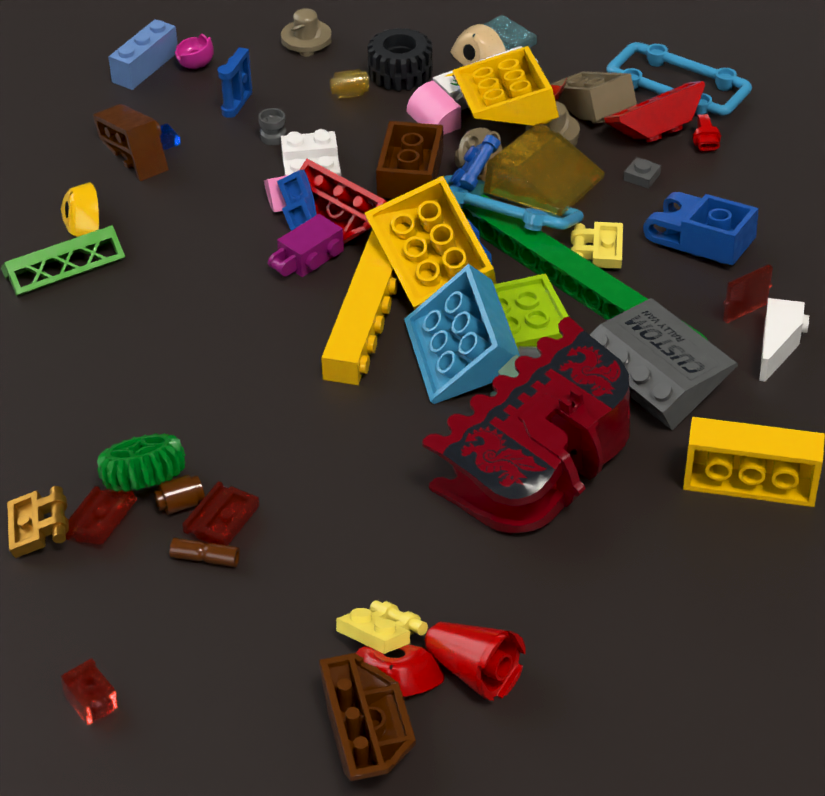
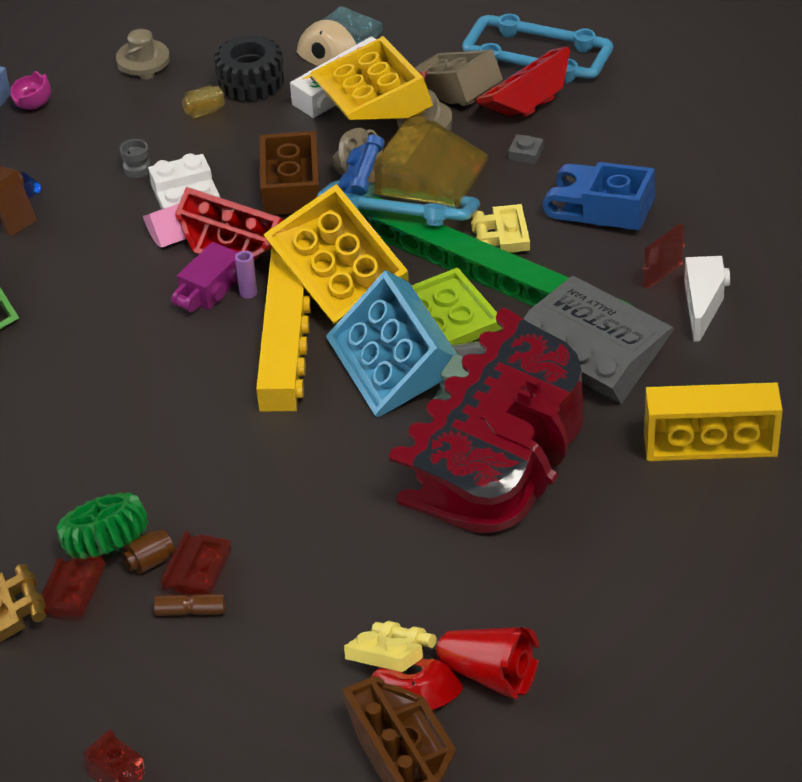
camera: 10 degrees left, 0 degrees up
(235, 82) = (85, 118): blue plate -> none
(298, 198) = (186, 230): blue slope -> none
(342, 248) = (246, 274): none -> medium lavender hinge
(434, 106) = (297, 112): bright pink brick -> none
(706, 136) = (580, 101): red piece -> none

